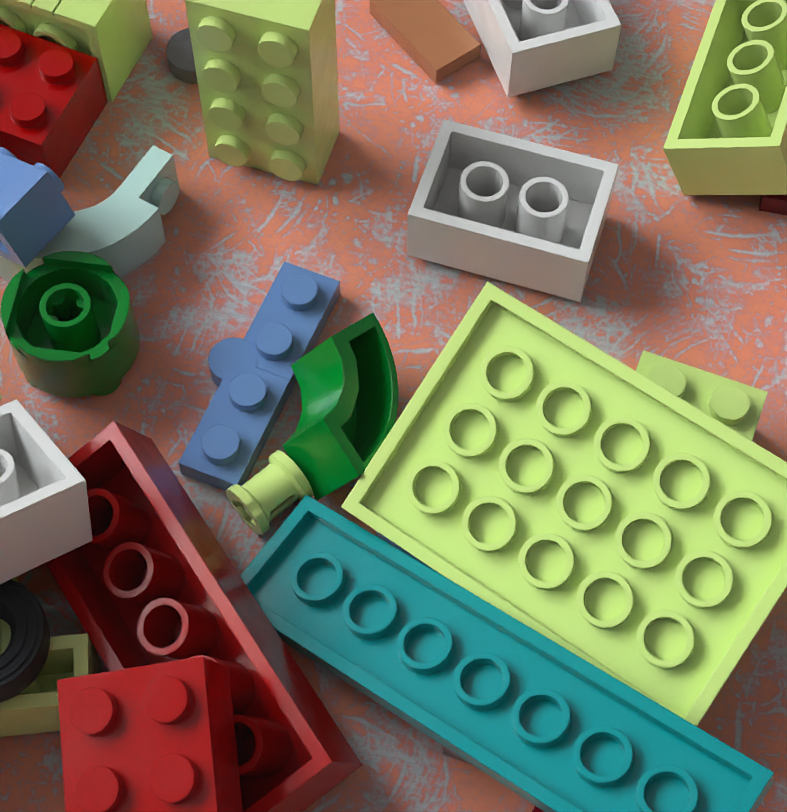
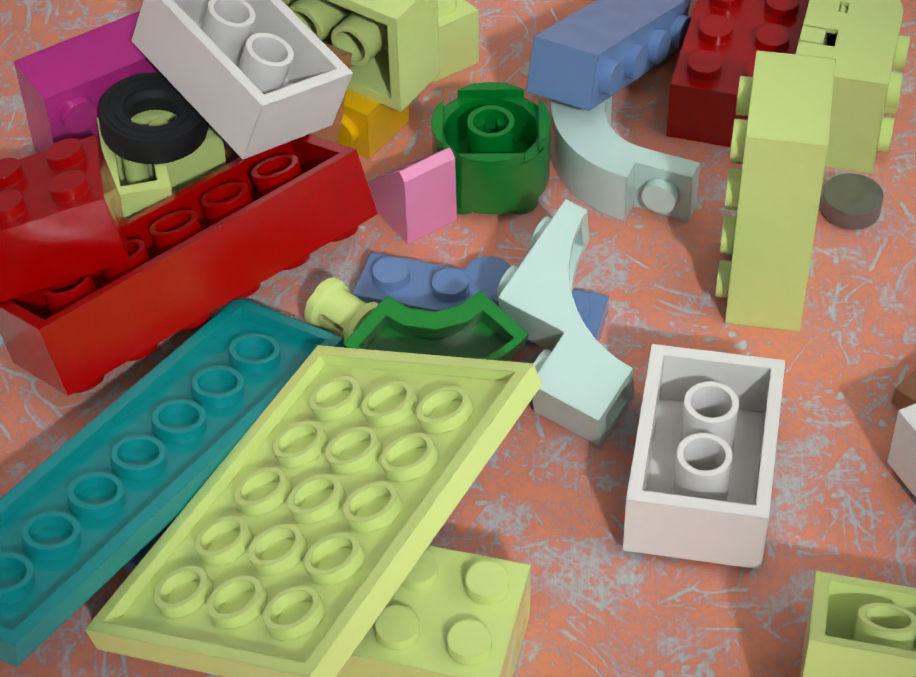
camera: 85 degrees right, 15 degrees down
(94, 400) = (417, 195): none -> bright pink slope
(319, 297) = (580, 379): none -> light aqua arch

